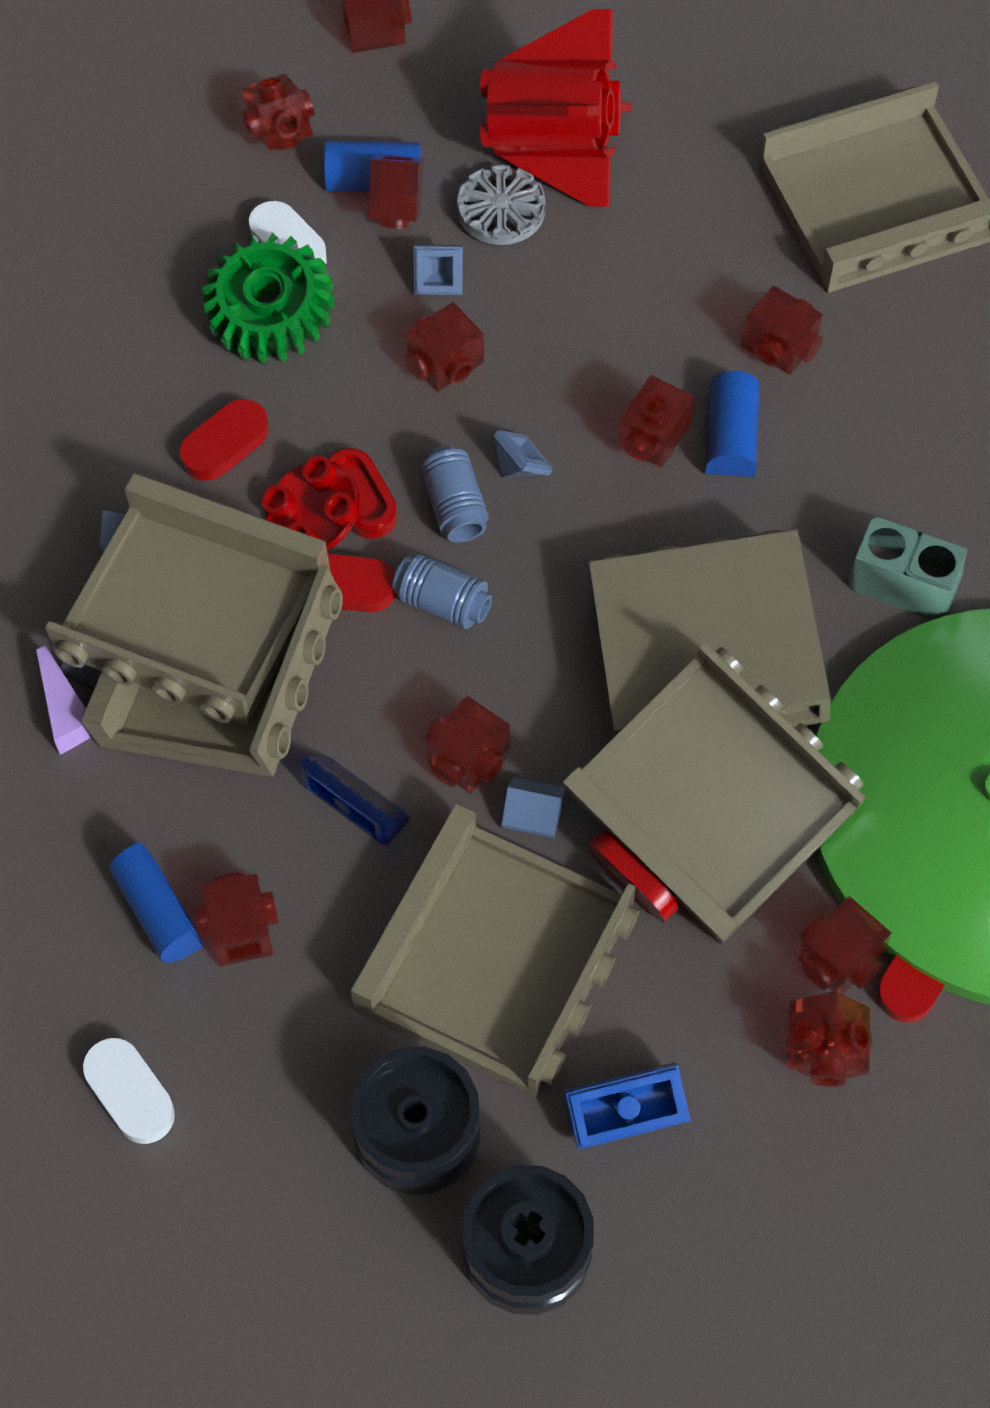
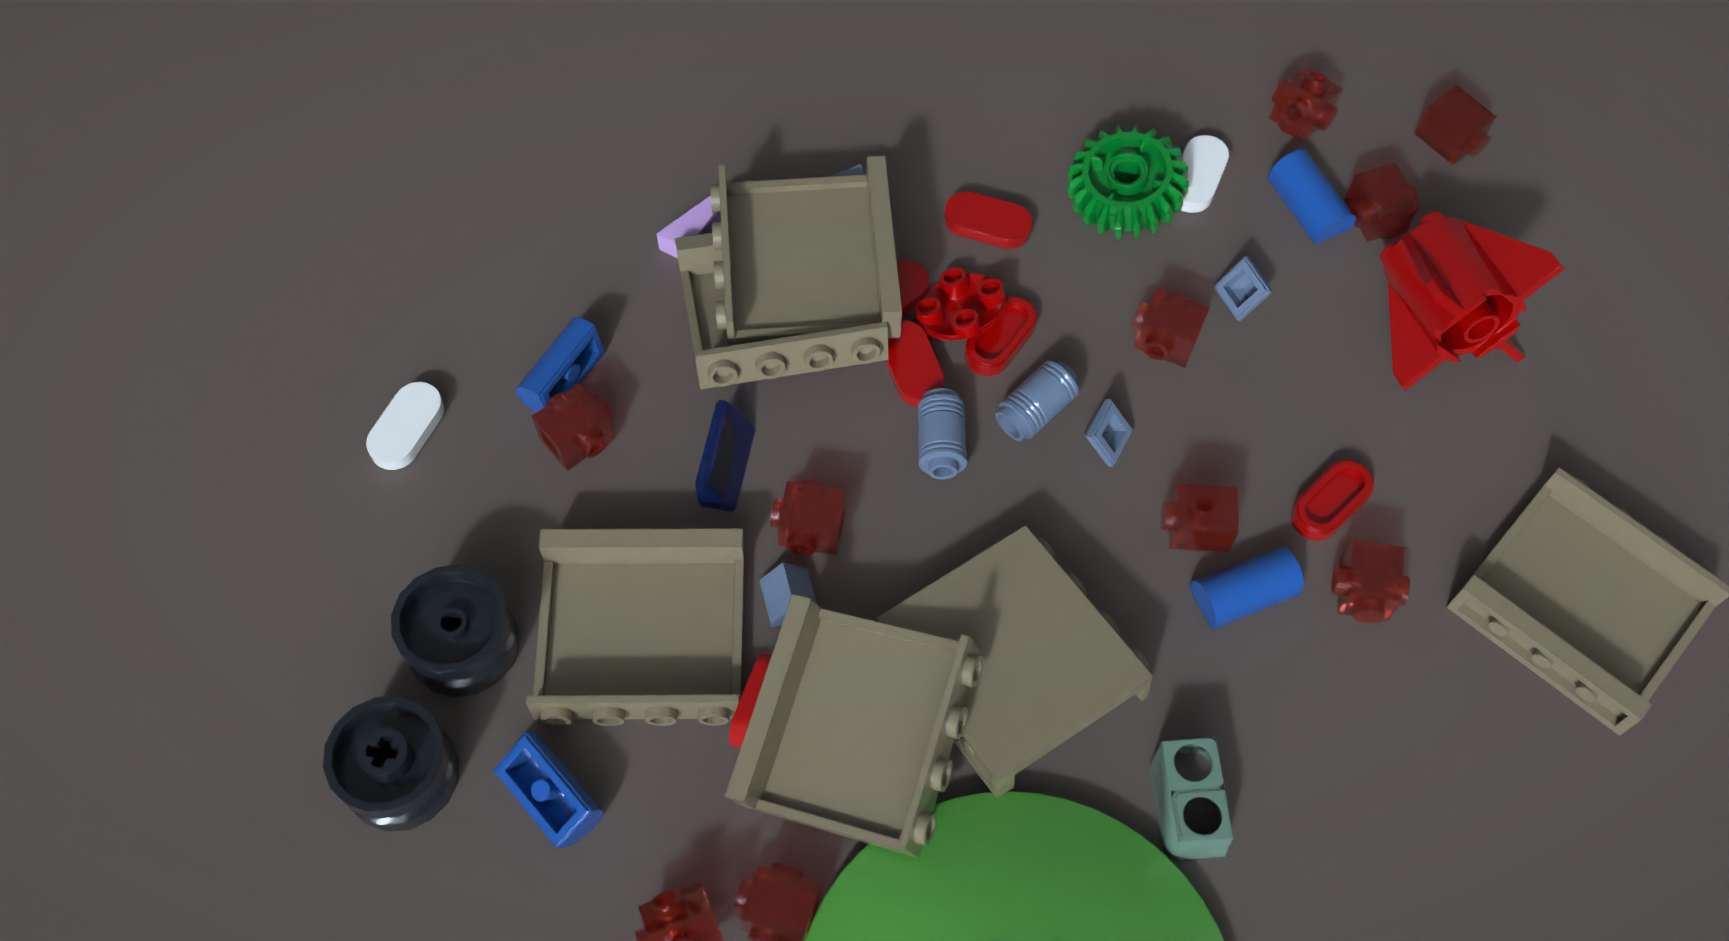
camera: 60 degrees right, 0 degrees up
(395, 190) = (1293, 218): clear red brick -> none
(420, 113) = (1382, 202): none -> clear red brick
(501, 205) = (1343, 306): light grey wheel -> none
(685, 319) = (1332, 500): none -> red tile

